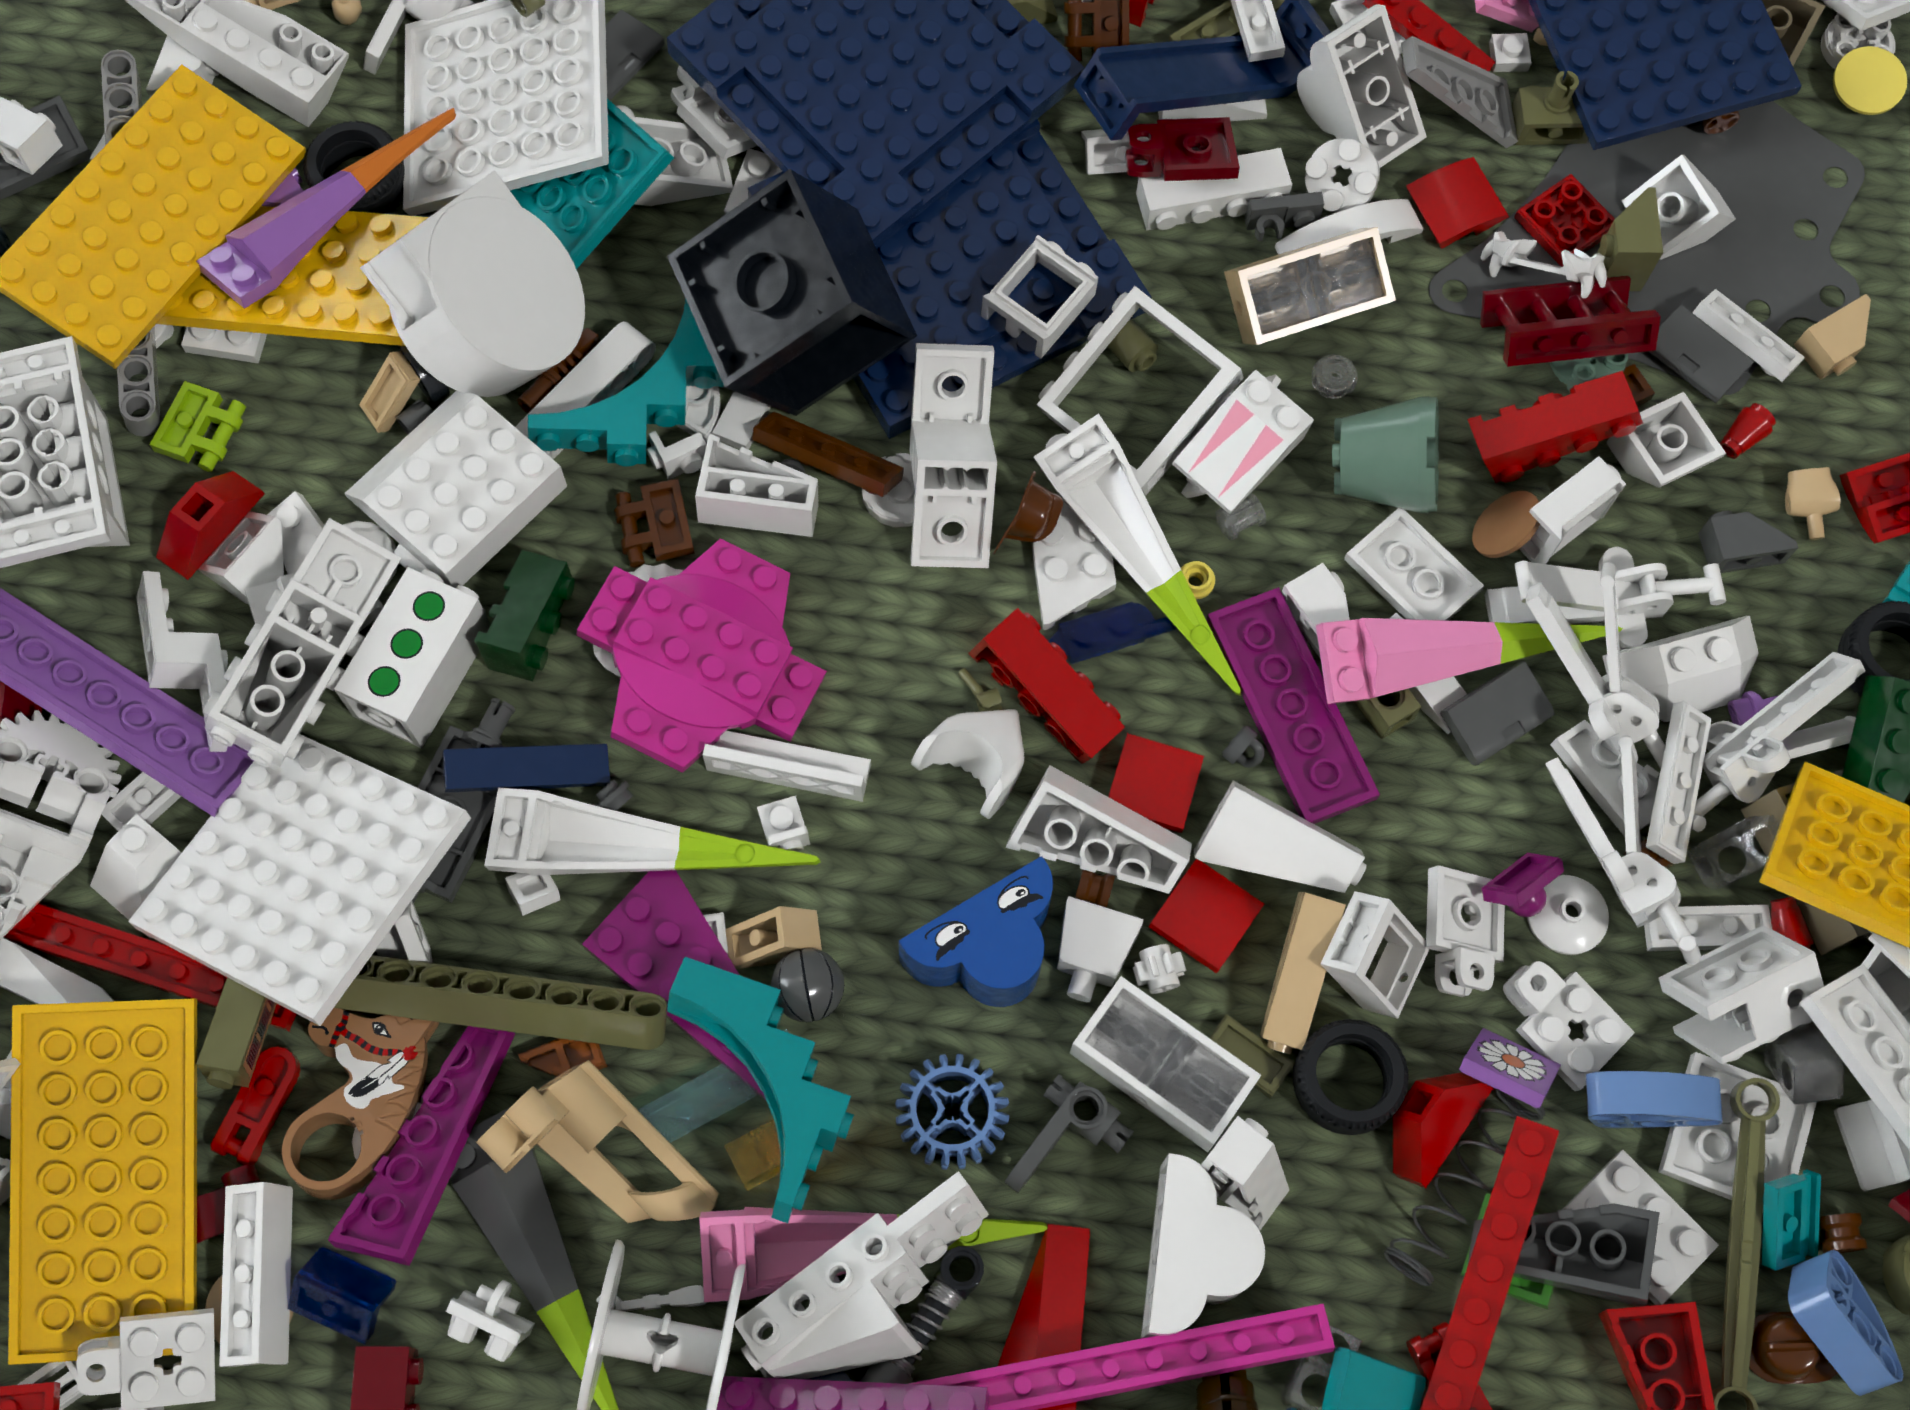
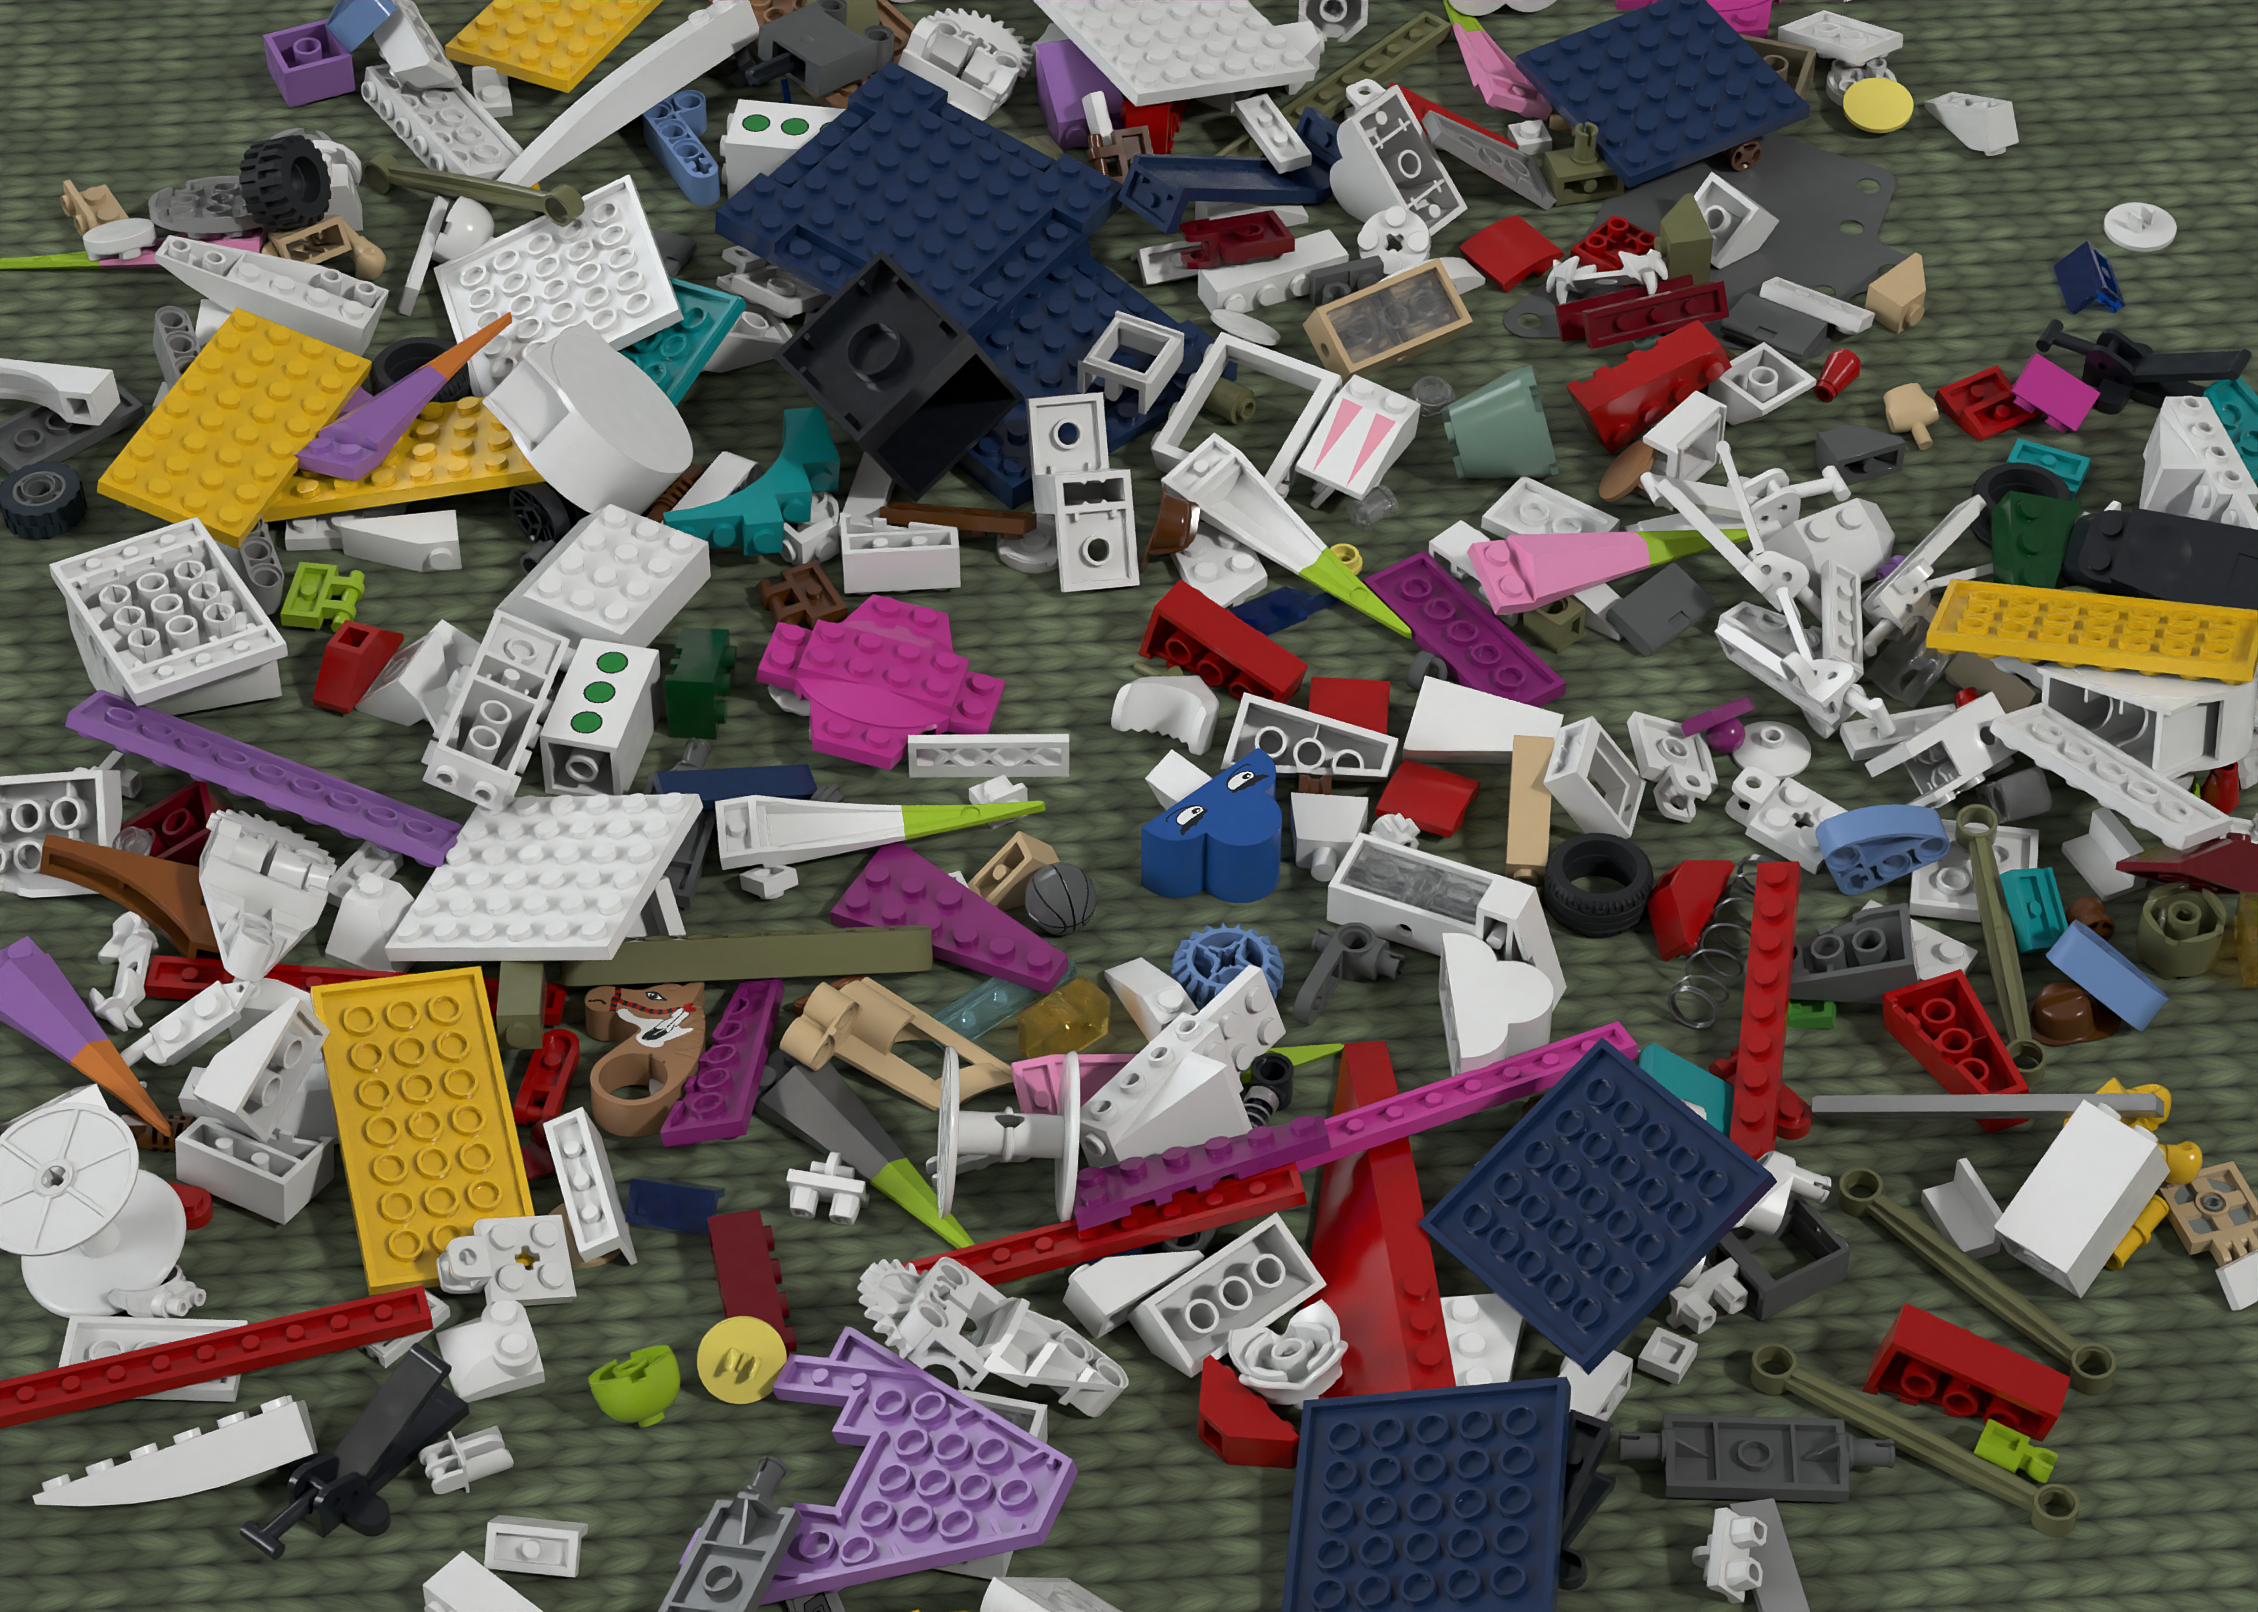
camera: 10 degrees left, 25 degrees down
(178, 658) = (371, 759): white bracket -> none
(307, 375) = (406, 541): none -> white slope
(389, 391) = (511, 535): tan tile -> none
(746, 1021) = (1011, 917): teal arch -> none
(871, 1132) = (1149, 995): none -> white slope
(959, 868) = (1175, 779): none -> white slope
(1169, 254) = (1245, 327): none -> white piece
(1510, 1068) = (1744, 845): medium lavender tile -> none

